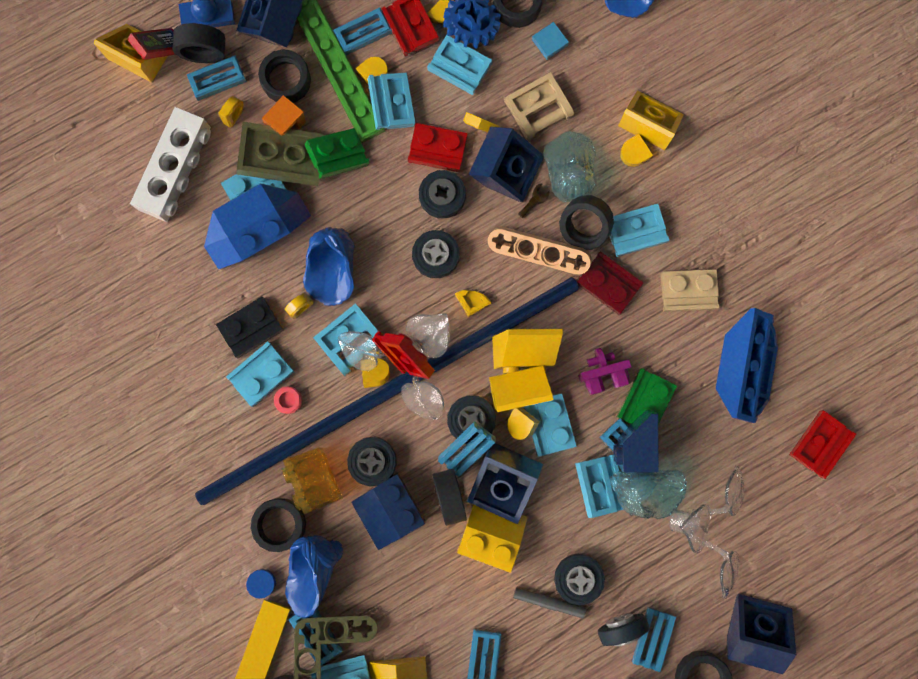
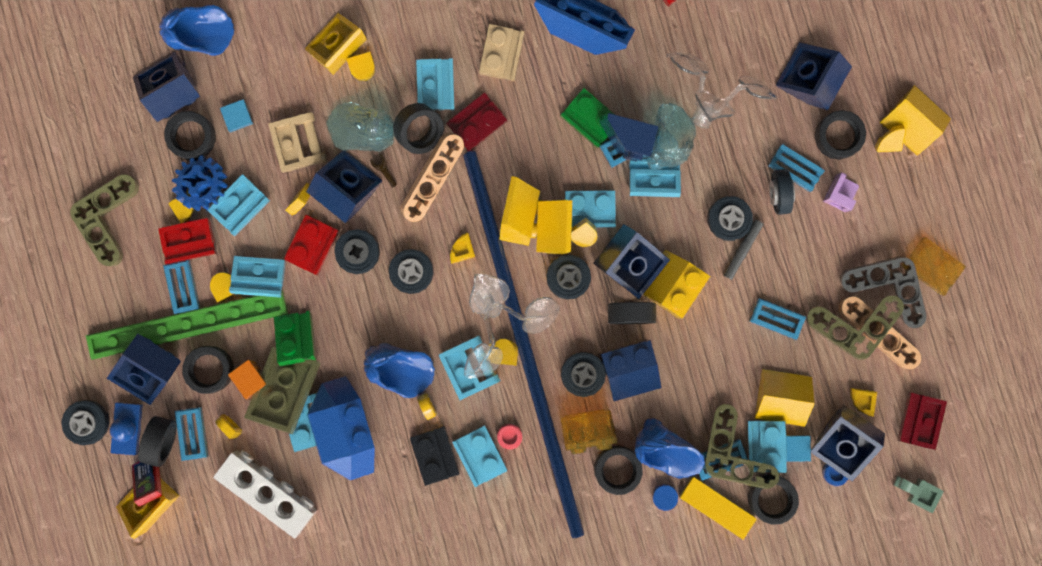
camera: 80 degrees left, 5 degrees up
(403, 354) = (498, 322): red plate -> none
(460, 468) = (597, 285): dark azure tile -> none
(617, 371) = (558, 136): magenta hips -> none

